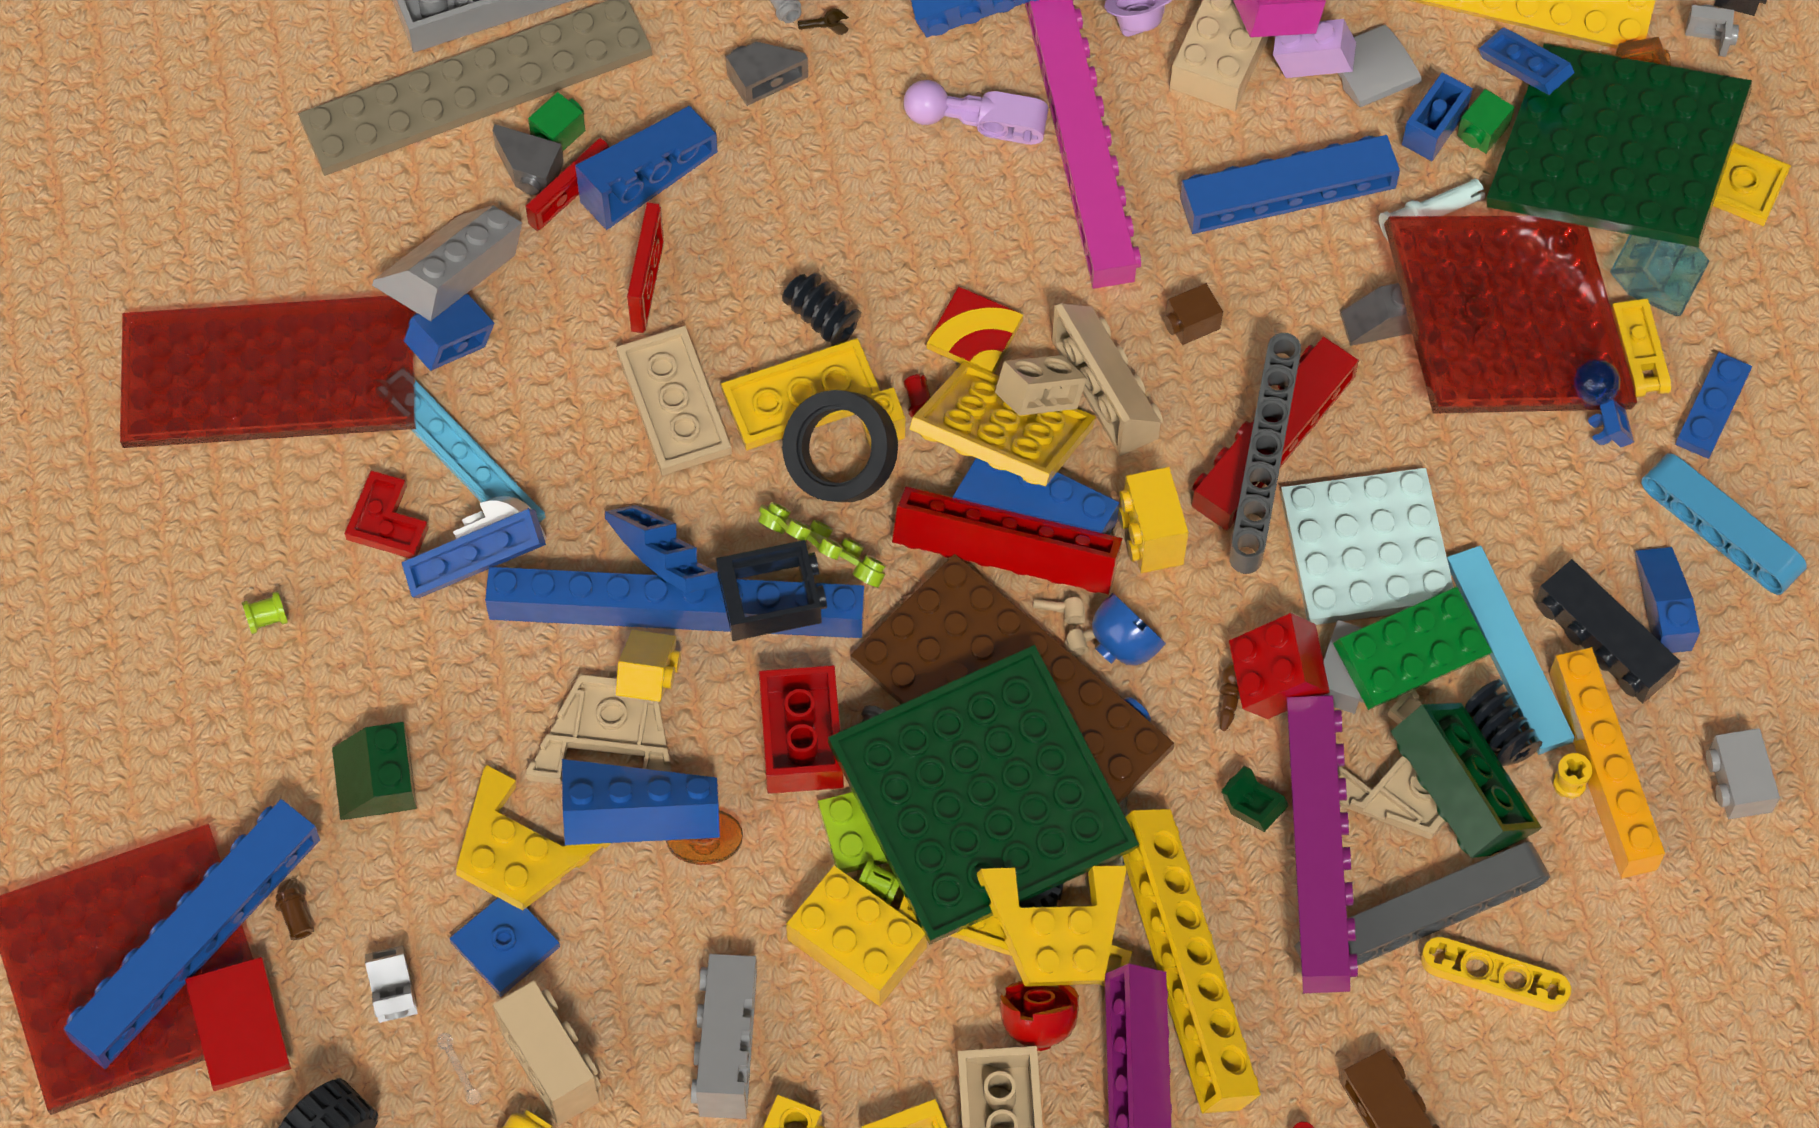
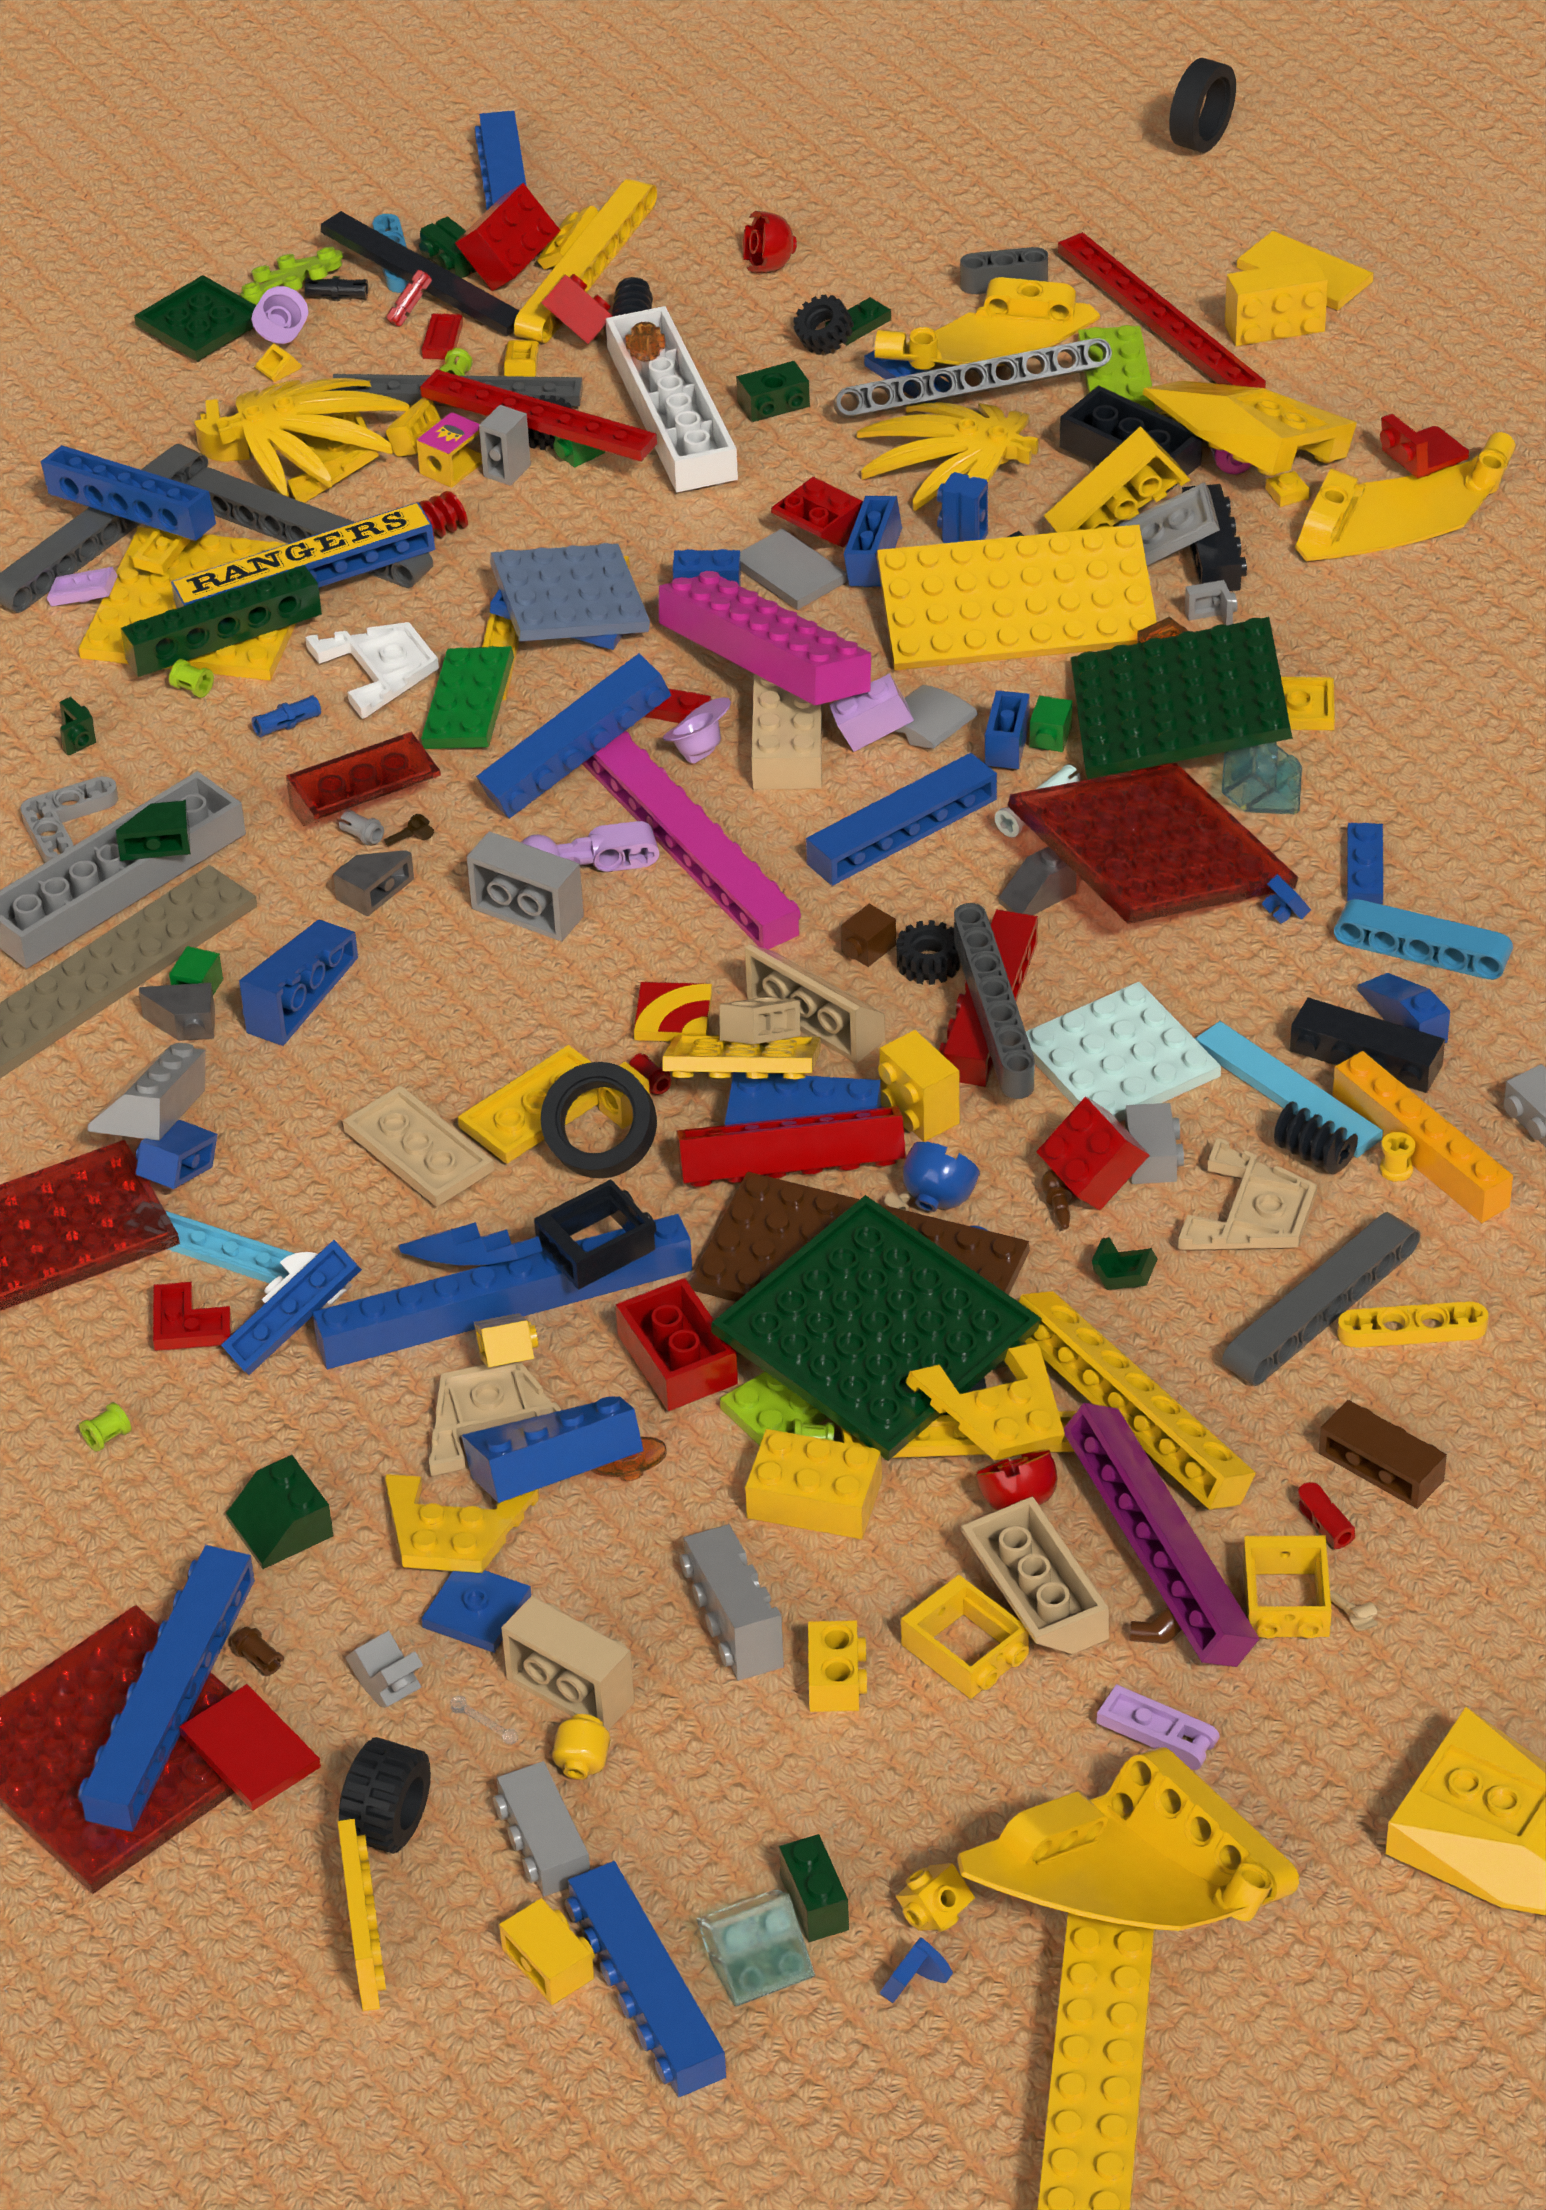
camera: 20 degrees left, 20 degrees down
(559, 191) = (224, 1026): red tile -> none
(645, 268) = (342, 1048): red tile -> none
(821, 309) = (522, 1034): black piece -> none
(867, 570) = (675, 1202): lime plant -> none
(895, 138) = (525, 886): none -> light grey brick
(1072, 608) = (876, 1181): tan hand -> none
(1235, 337) = (927, 965): none -> black tyre
(1318, 845) = (1205, 1268): magenta brick -> none
(1412, 648) = (1203, 1105): green plate -> none
(1464, 779) = (1304, 1181): dark green slope -> none
(1526, 60) = (1064, 666): blue plate -> none
(1597, 382) = (1257, 863): clear blue piece -> none
(1641, 346) = (1280, 838): yellow plate -> none

